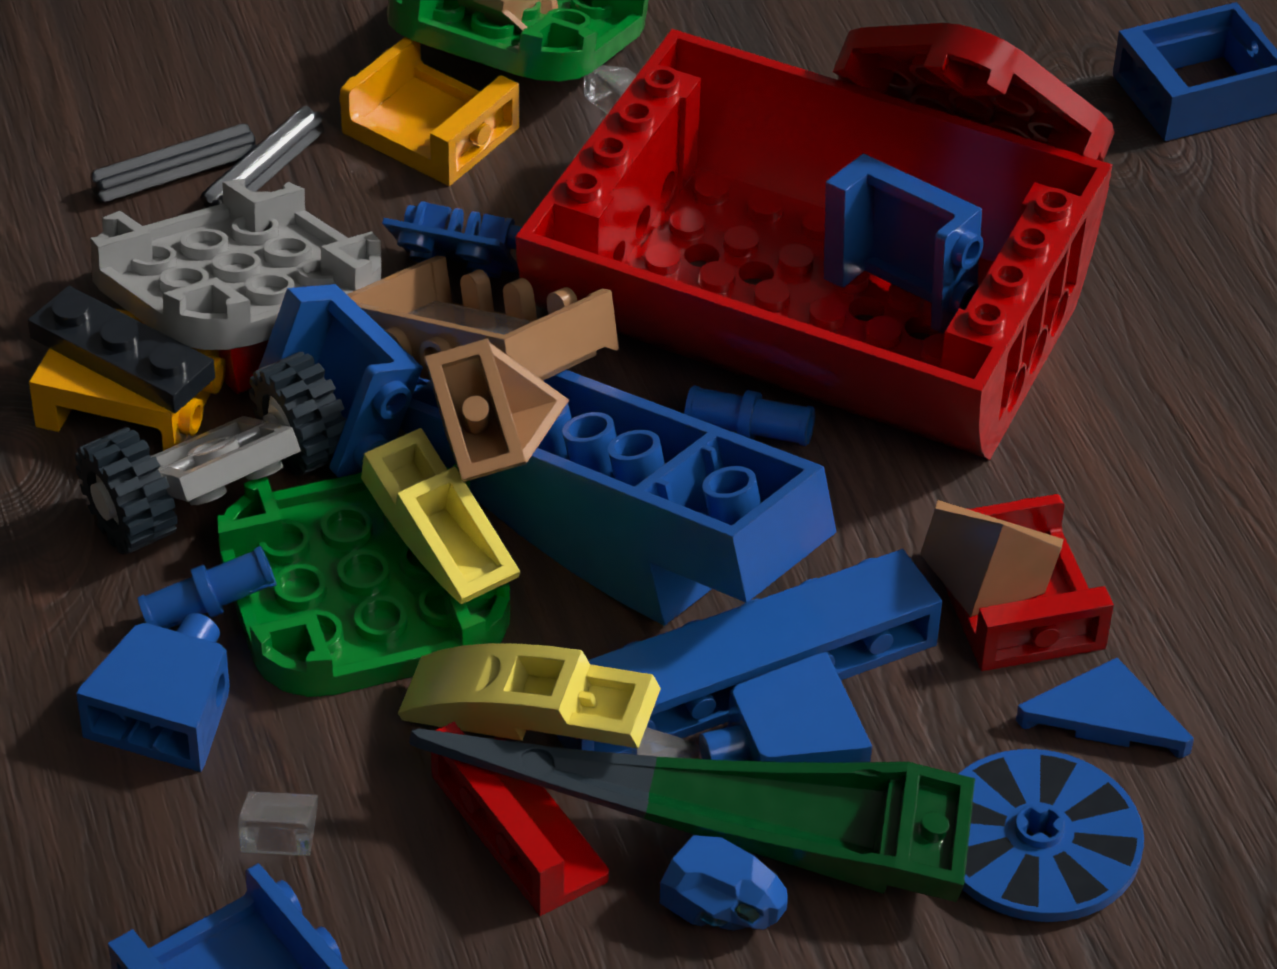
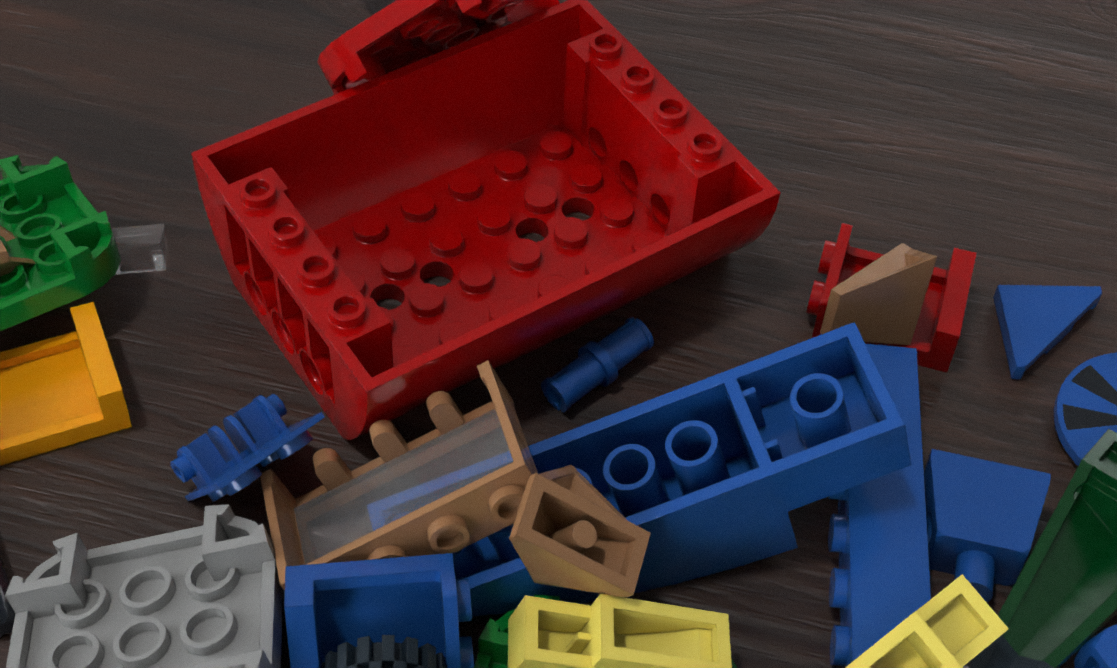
camera: 60 degrees left, 5 degrees up
(902, 234) = (542, 149): blue panel -> none

